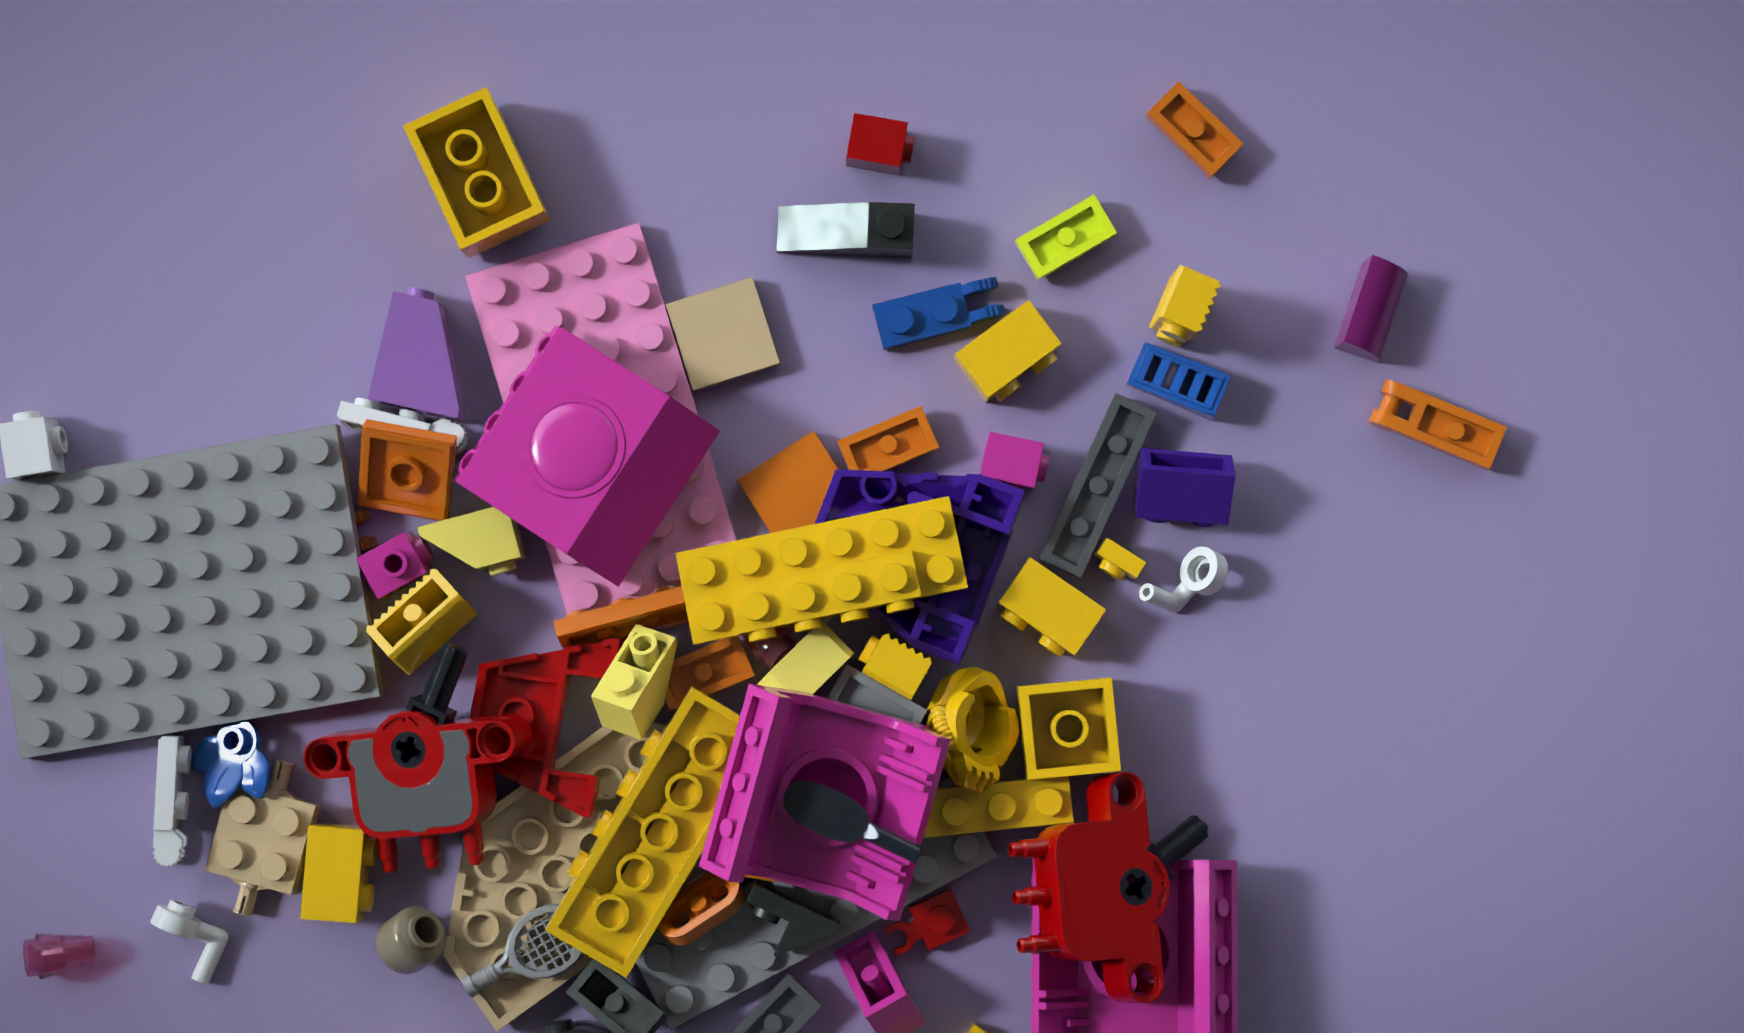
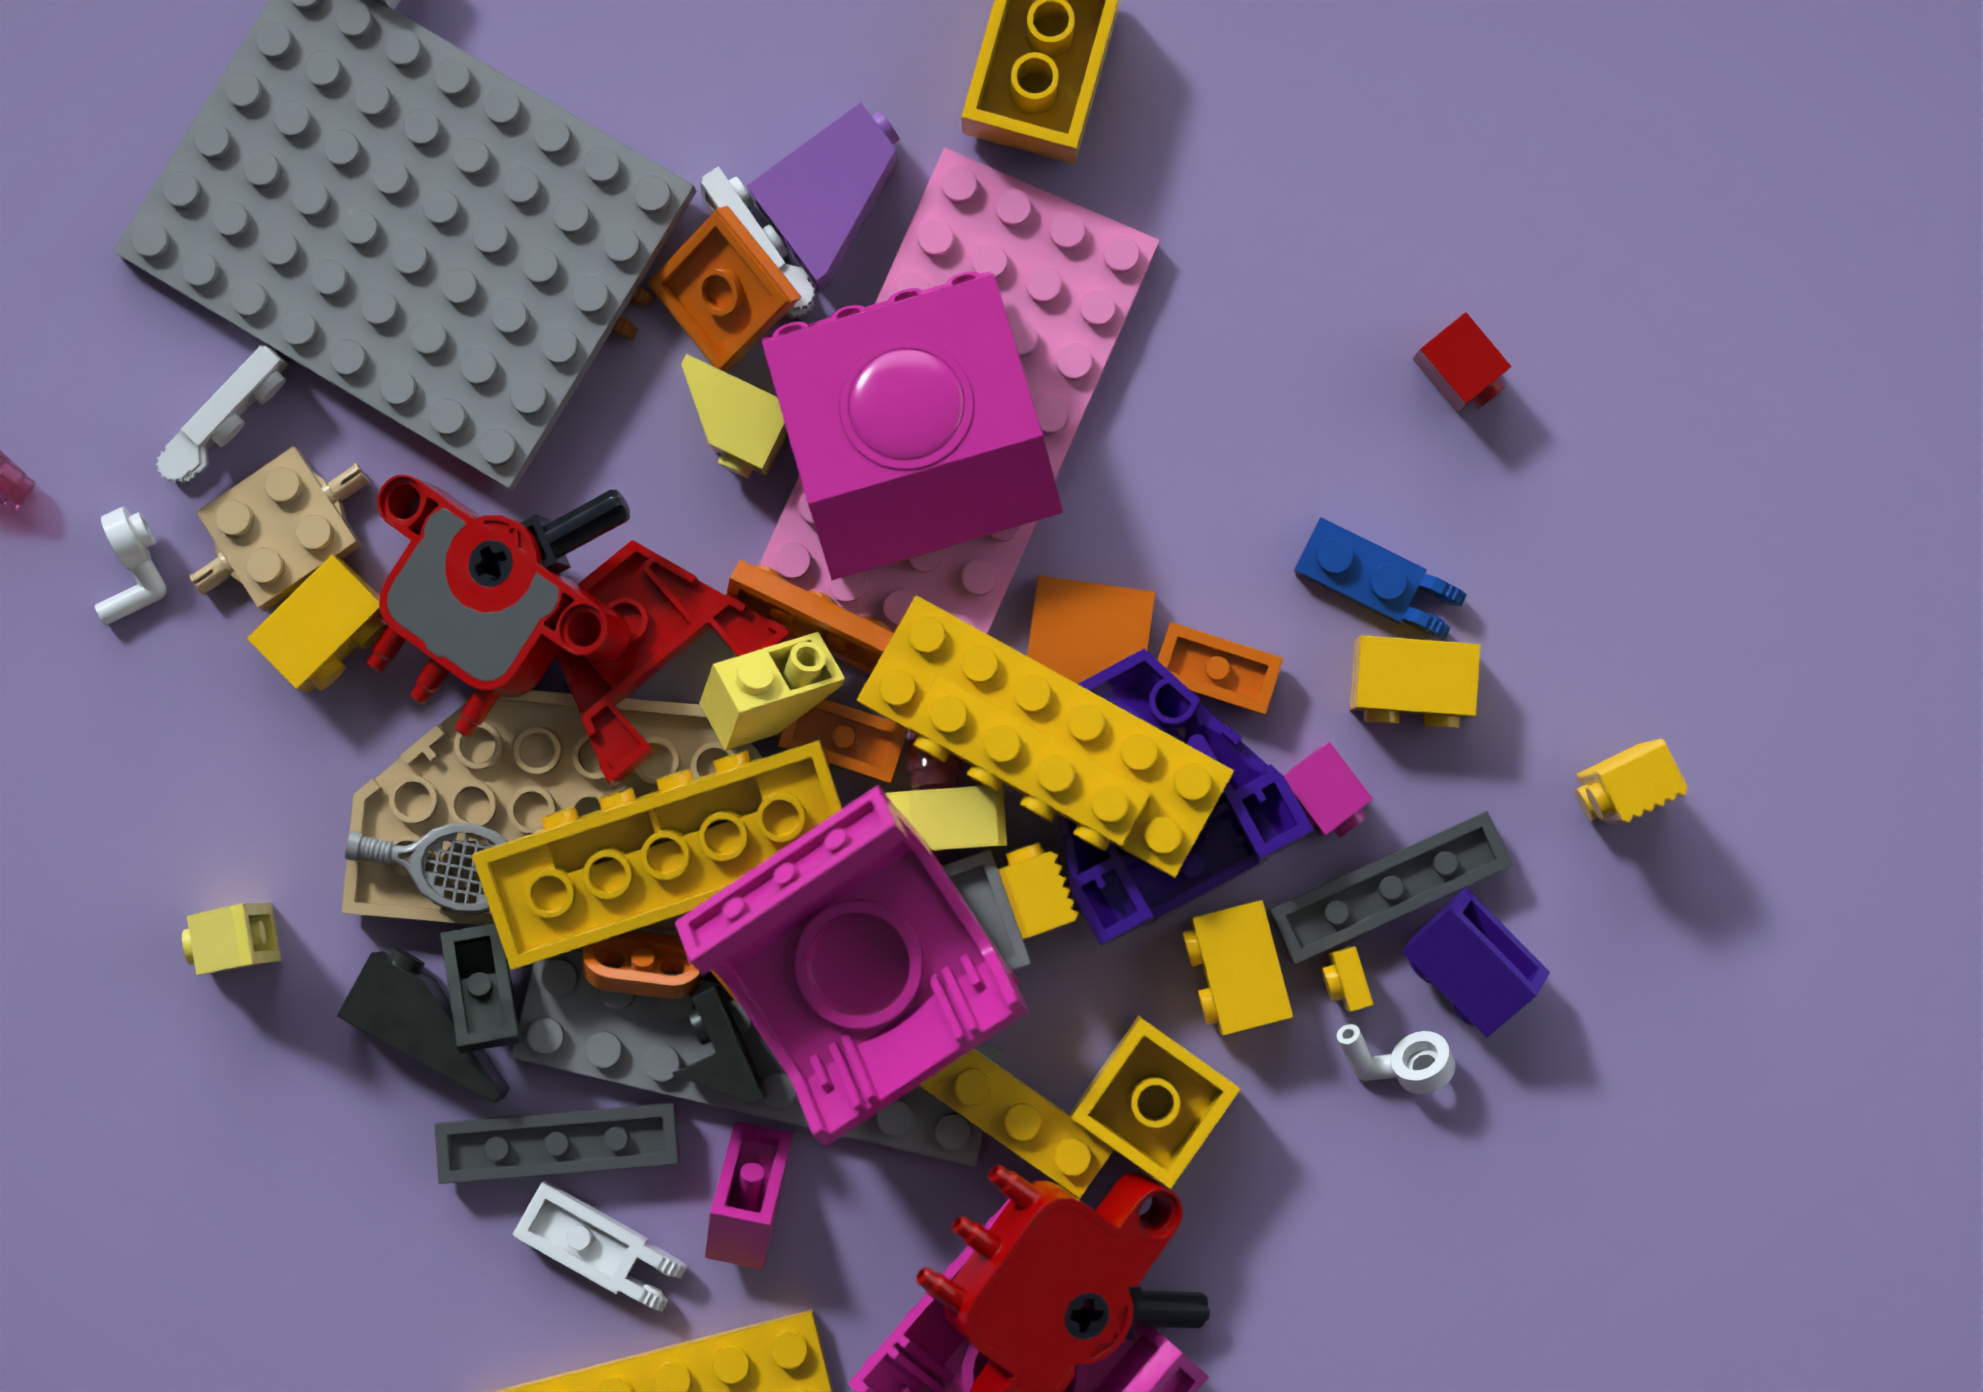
camera: 50 degrees right, 0 degrees up
(232, 767) = (307, 433): blue plate -> none
(396, 563) = (636, 372): dark pink brick -> none
(411, 940) = (335, 752): dark tan head -> none
(421, 621) = (610, 449): yellow brick -> none
(722, 334) = (1147, 420): tan tile -> none
(842, 819) = (854, 998): black piece -> none
(847, 229) = (1360, 422): slope -> none
(935, 920) = (860, 1177): red plate -> none
(975, 716) = (1072, 1009): yellow helmet -> none
(1065, 237) = (1570, 614): neon yellow plate -> none
(1194, 129) = (1791, 617): orange plate -> none
(1201, 371) = (1580, 842): blue slope -> none
(1371, 308) = (1816, 946): magenta brick -> none
(1439, 425) = (1784, 1120): orange plate -> none

